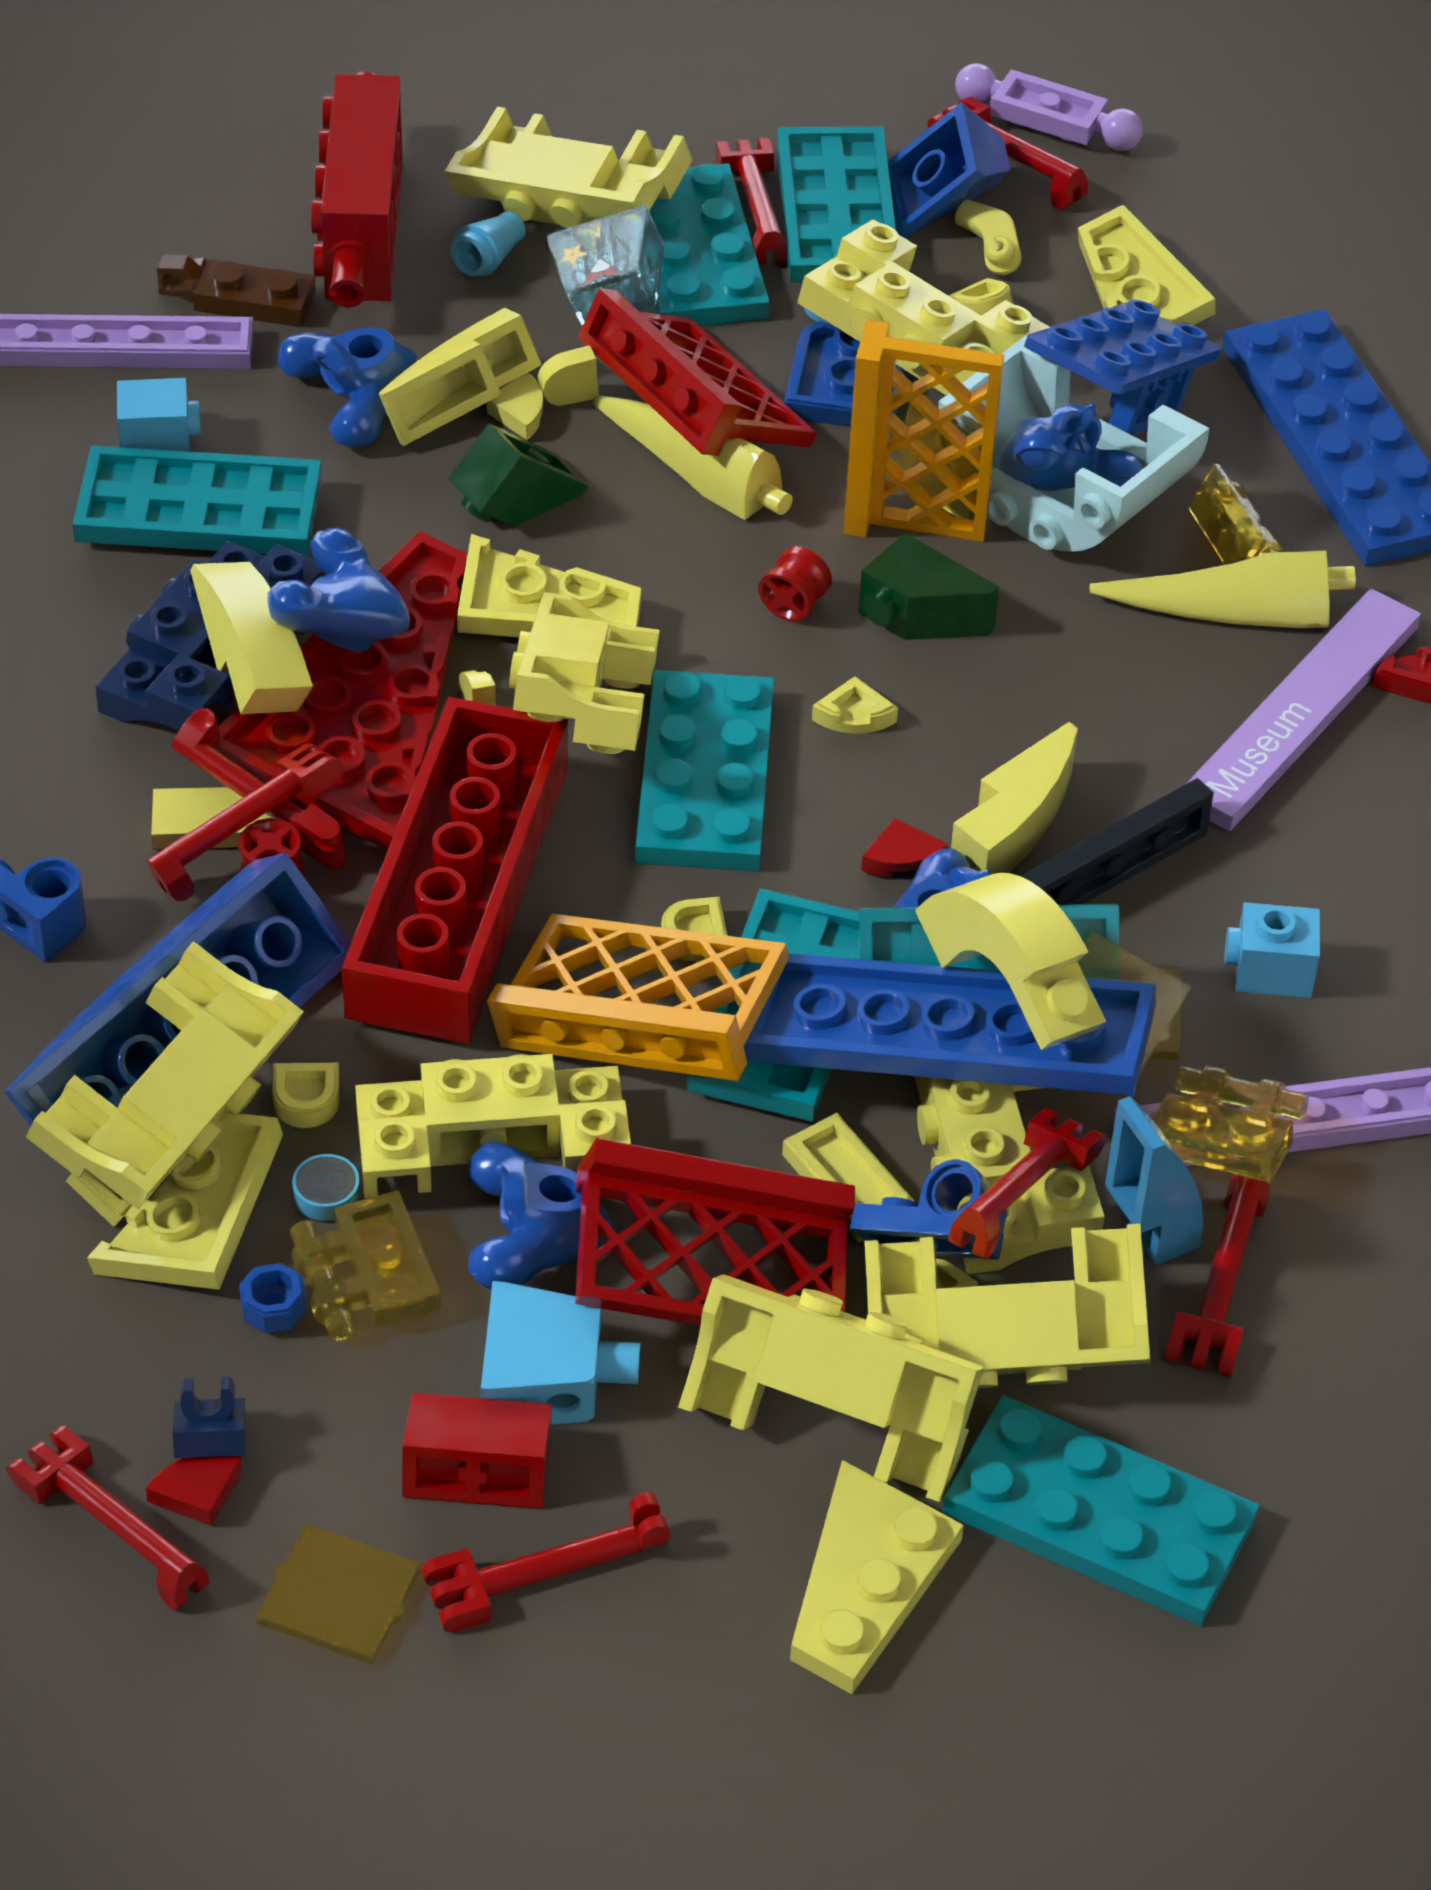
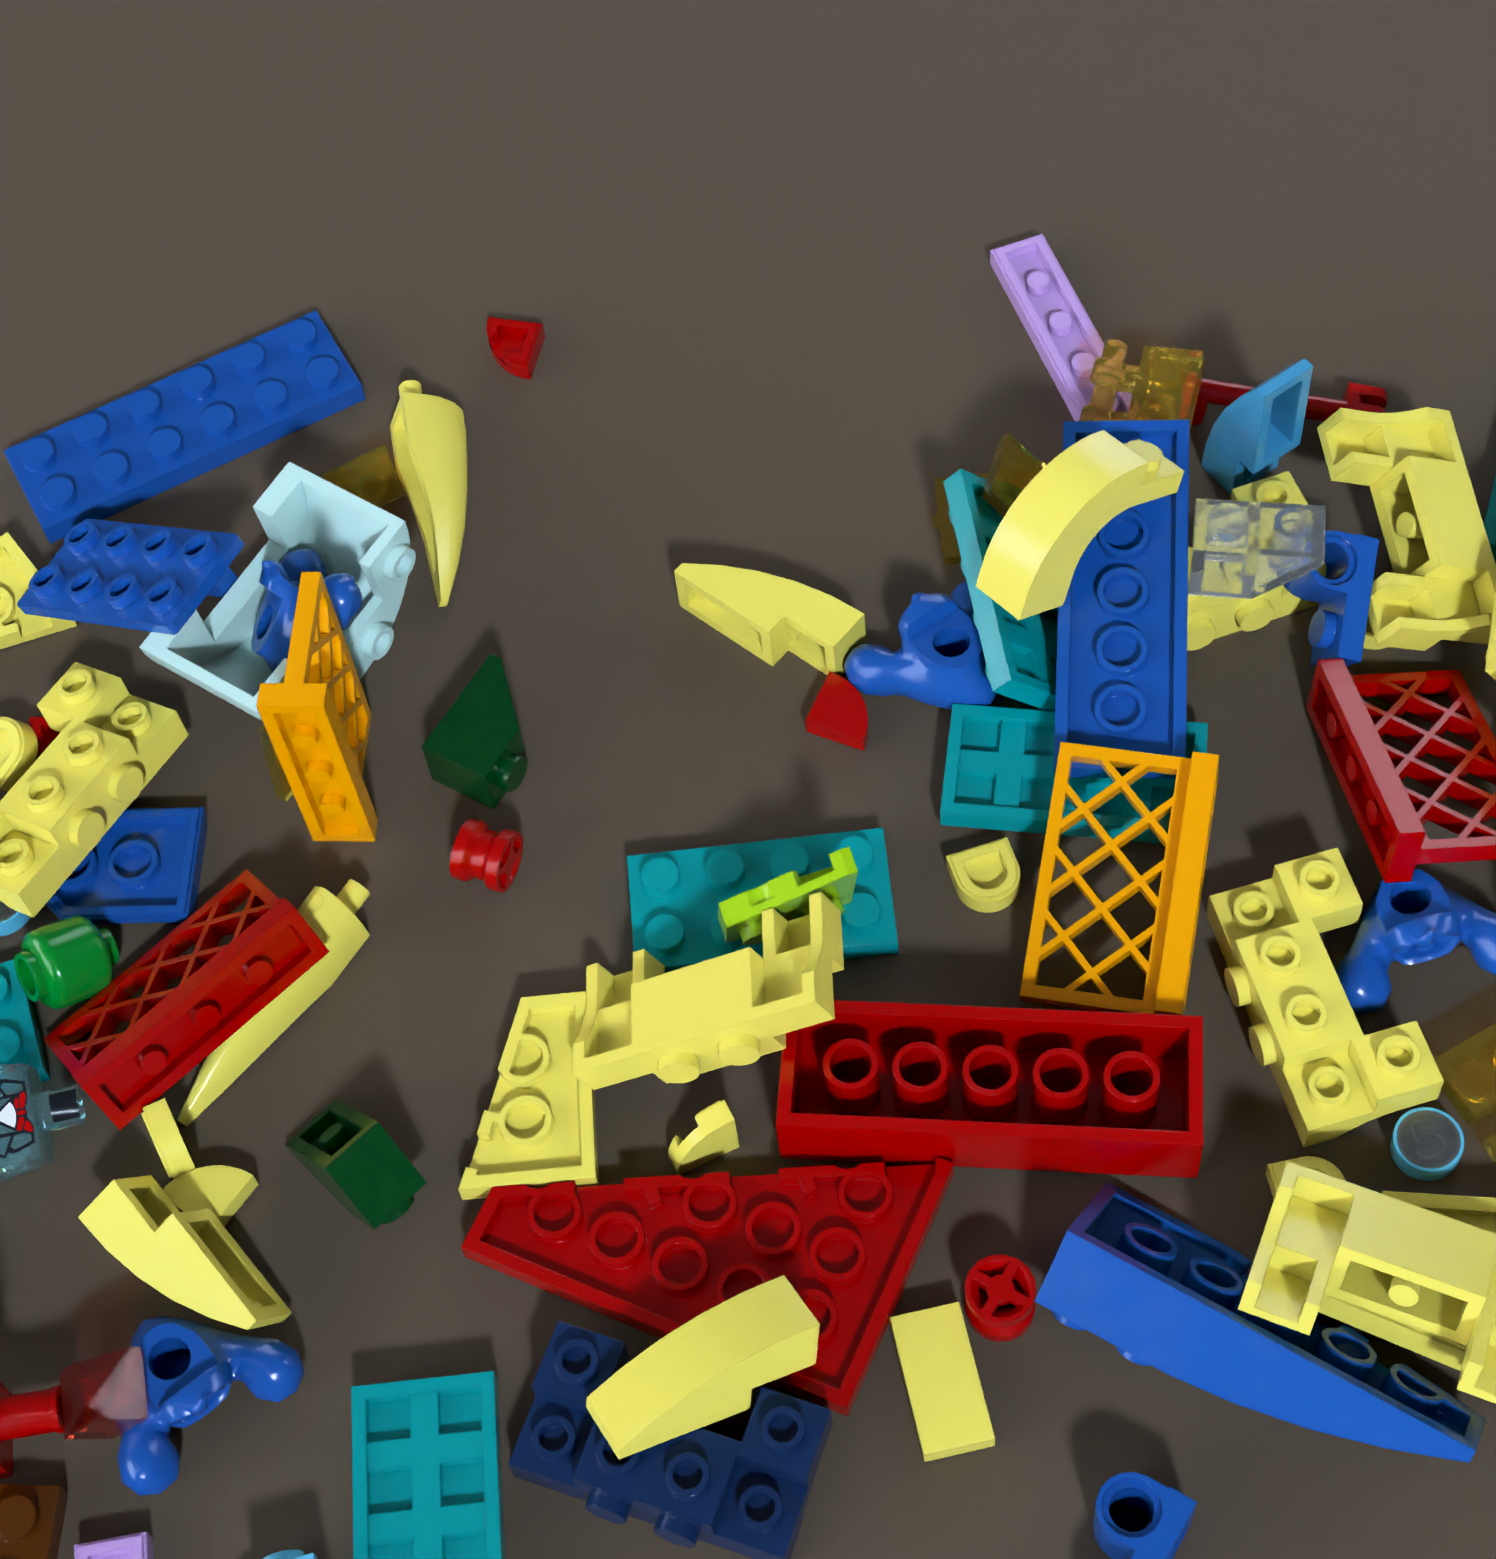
camera: 90 degrees left, 10 degrees up
(303, 770) = (914, 1265): red hinge -> none
(317, 829) = (871, 1405): red hinge -> none
(346, 310) = (103, 1395): none -> clear red slope
(348, 605) = (640, 1273): blue head -> none
(666, 732) = (788, 896): none -> lime wing
(752, 323) = (66, 962): none -> green head
(838, 1155) = (1260, 700): light yellow tile -> none
(854, 709) = (645, 785): light yellow tile -> none
(974, 1101) = (1253, 546): none -> clear slope
(1049, 1148) = (1384, 520): red hinge -> none
(1126, 846) = (822, 537): black hinge -> none
(1275, 950) = (909, 400): medium azure brick -> none
(1304, 705) = (582, 423): lavender tile -> none

